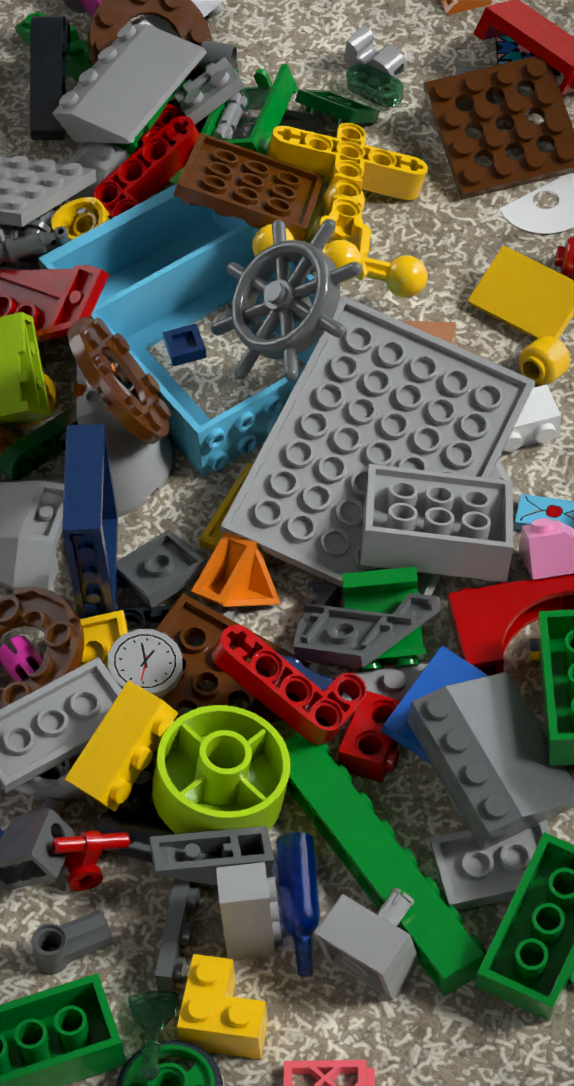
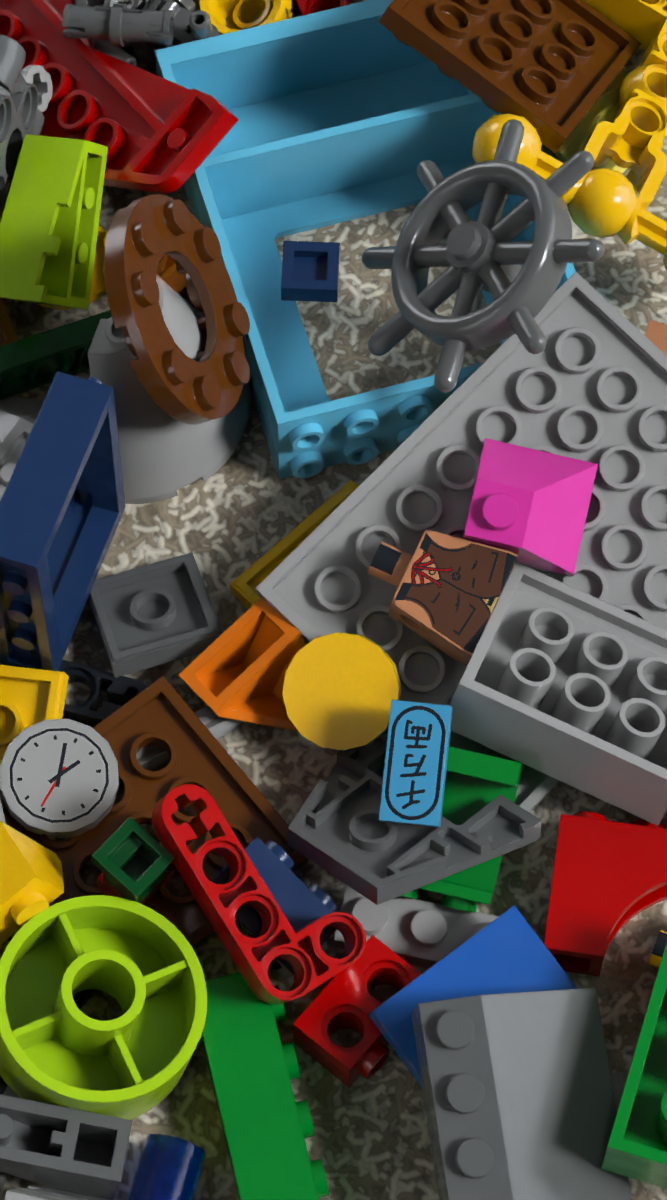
camera: 15 degrees right, 10 degrees up
(212, 684) = (132, 863): none -> dark green leg
(293, 566) = (341, 690): none -> yellow tile
(334, 489) = (445, 588): none -> torso
(355, 585) = (415, 763): none -> dark azure tile
(364, 432) = (530, 505): none -> dark pink slope

